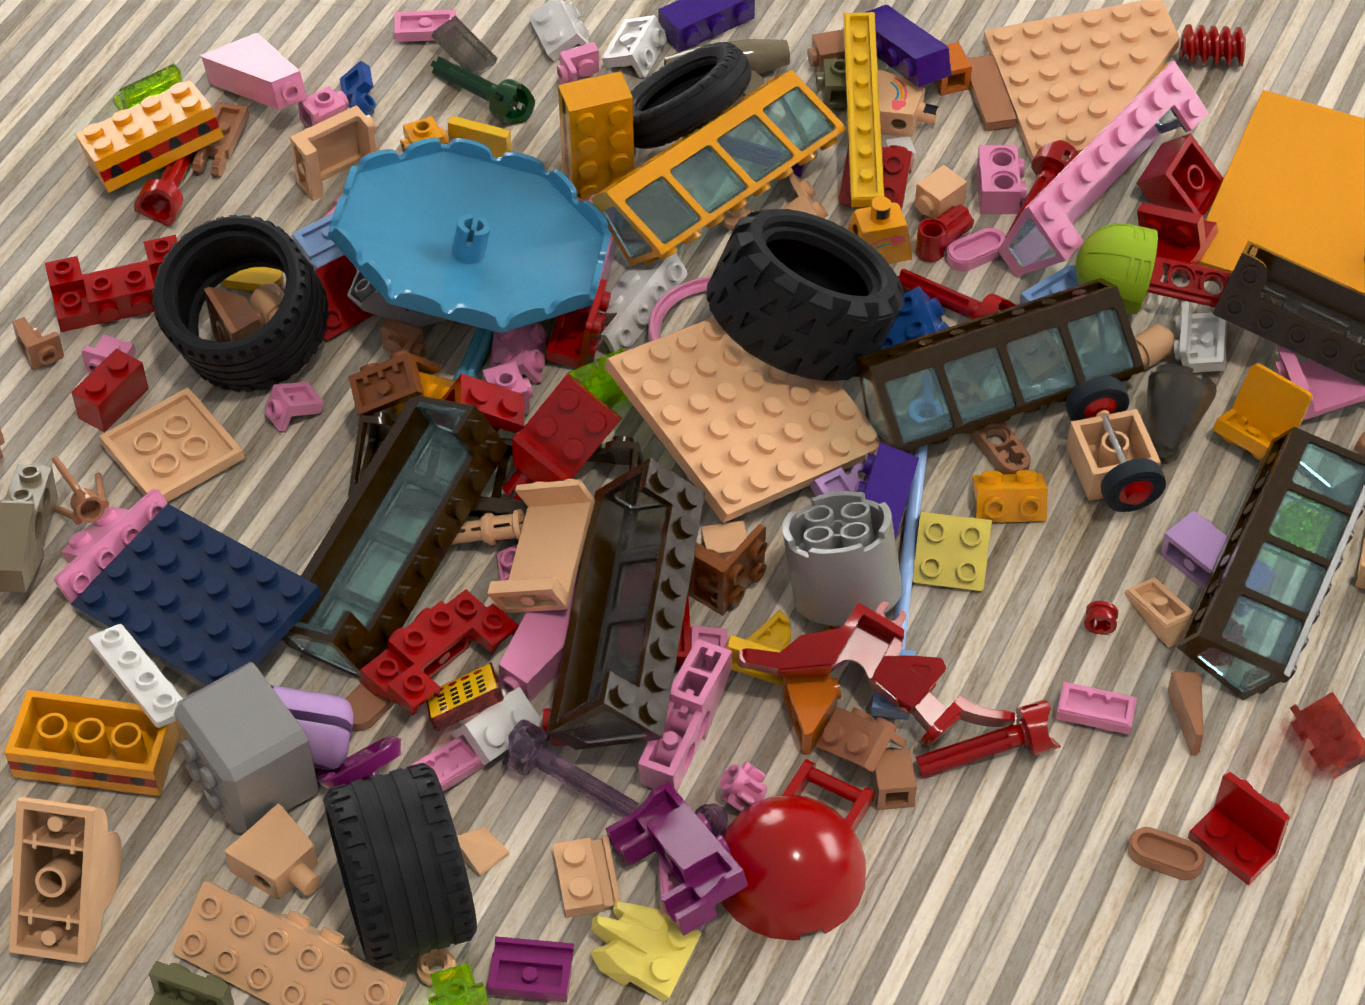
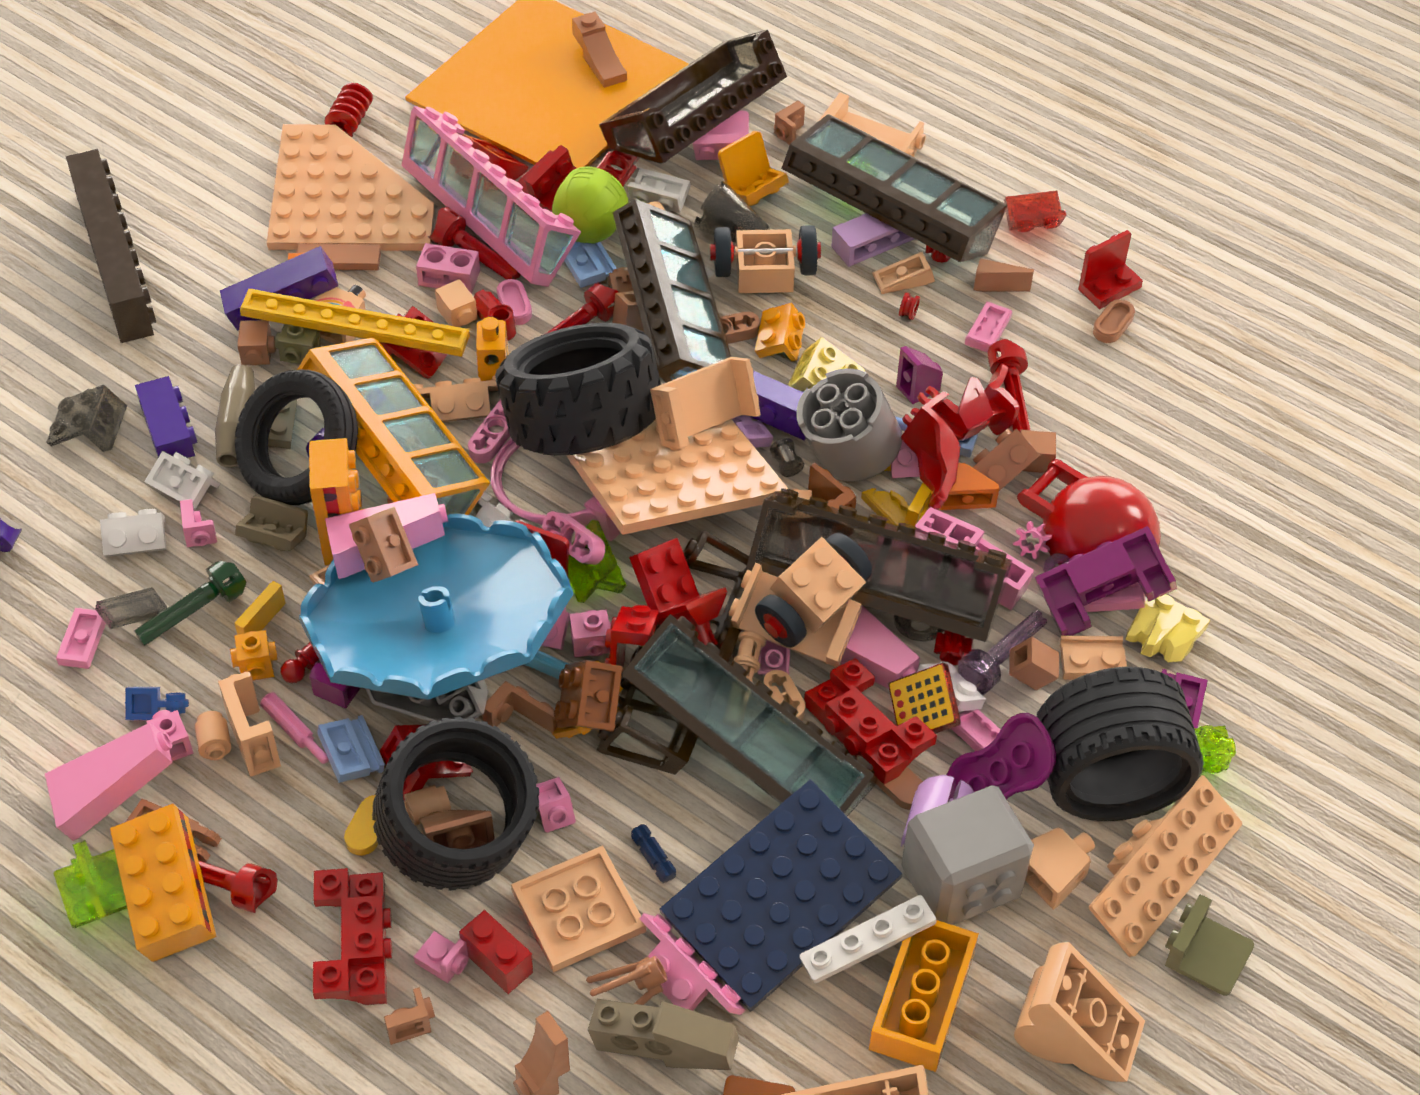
camera: 80 degrees left, 0 degrees up
(247, 498) = (653, 853): none -> dark blue axle
(464, 577) = (789, 691): none -> light nougat beam
(518, 165) = (383, 544): none -> nougat bracket
(548, 804) = (1034, 663): none -> nougat brick
(553, 173) = (420, 518): none -> bright pink slope
(566, 543) = (813, 589): none -> light nougat brick
(613, 342) = (582, 537): none -> bright pink beam
(821, 403) = (704, 400): none -> light nougat panel
(976, 633) = (916, 373): none -> magenta slope

